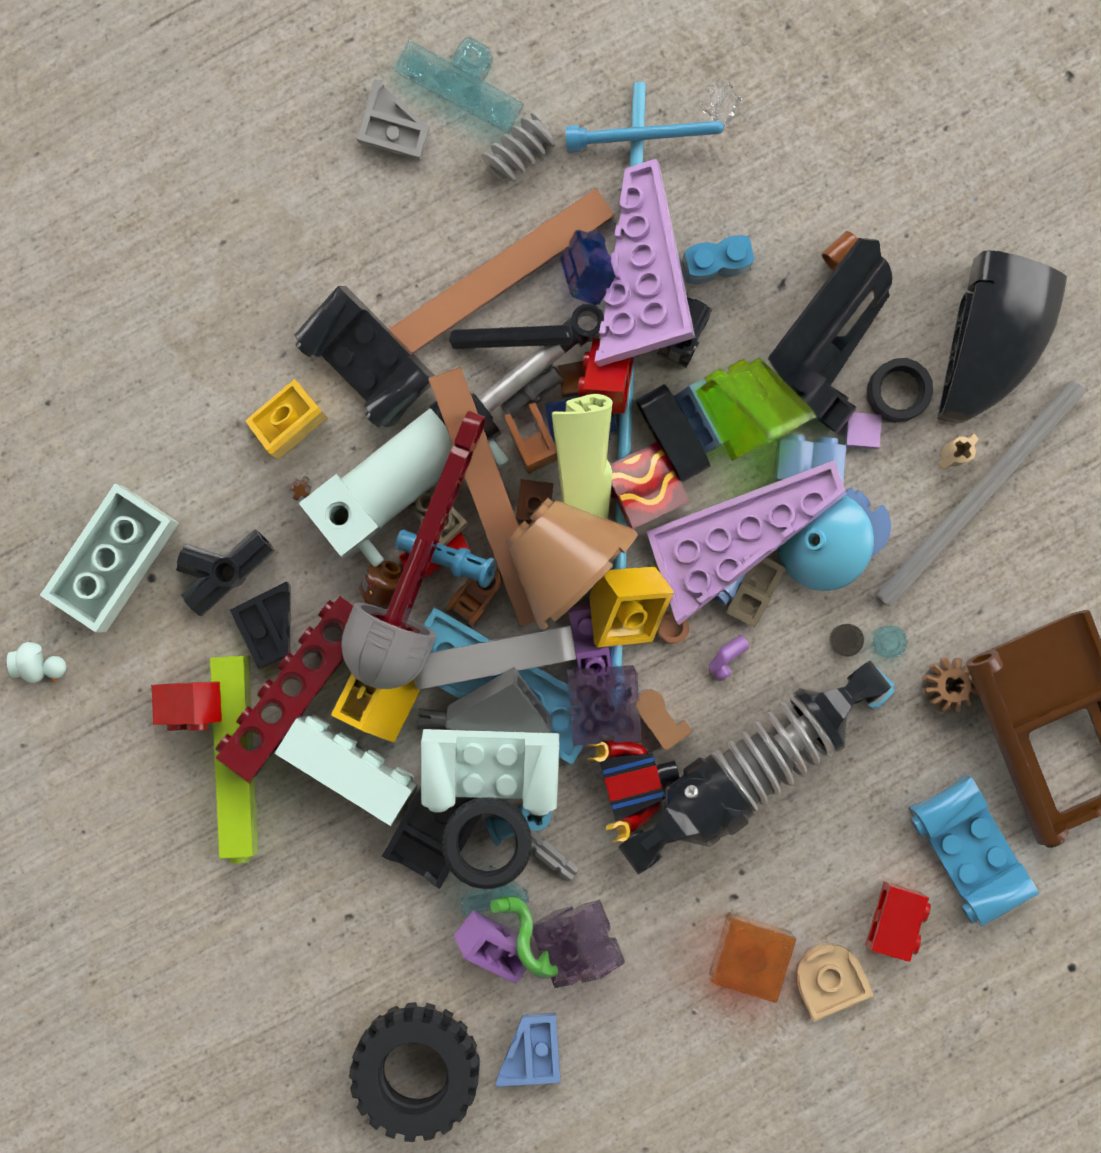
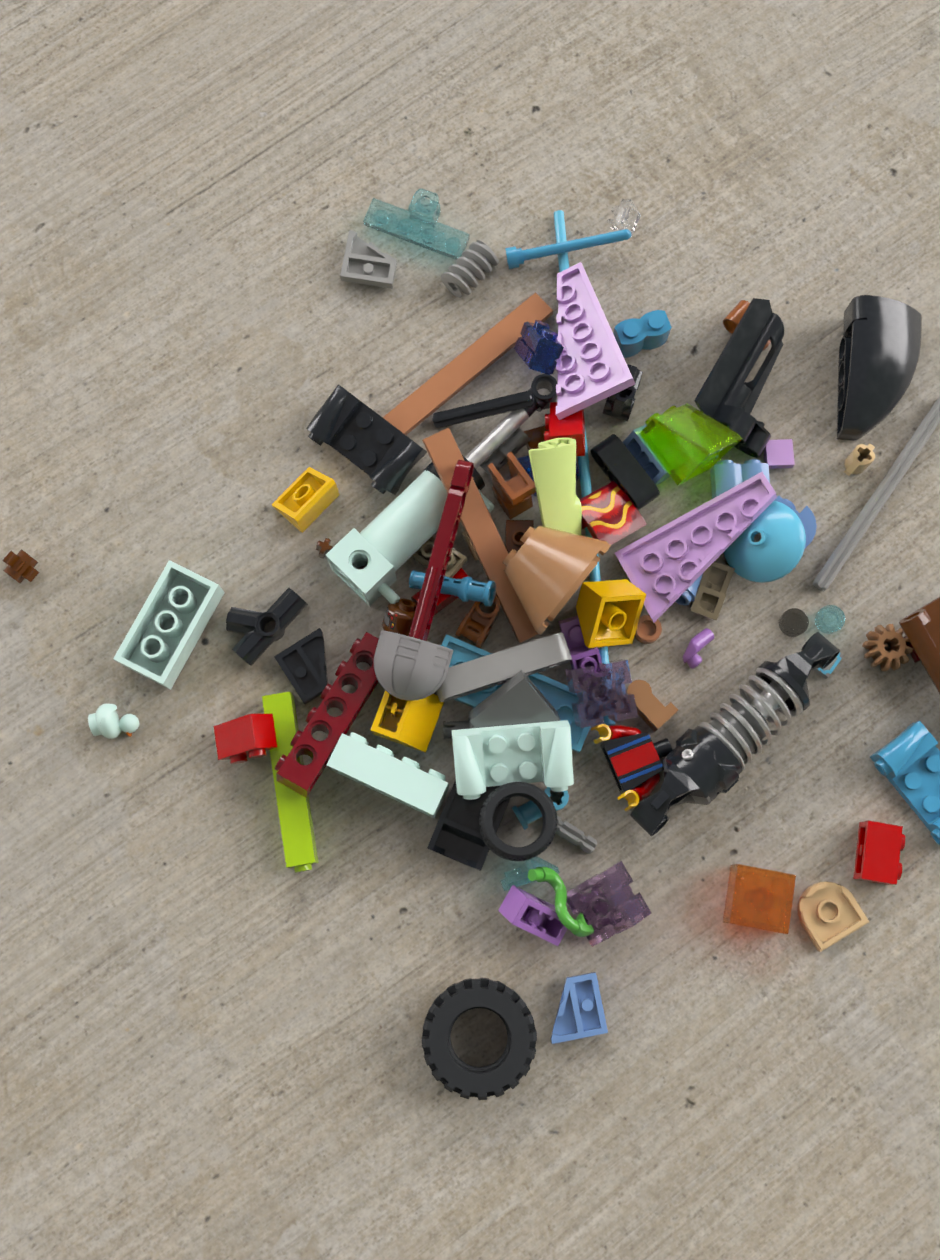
camera: 10 degrees left, 10 degrees down
(922, 378) = (814, 402): black tyre -> none

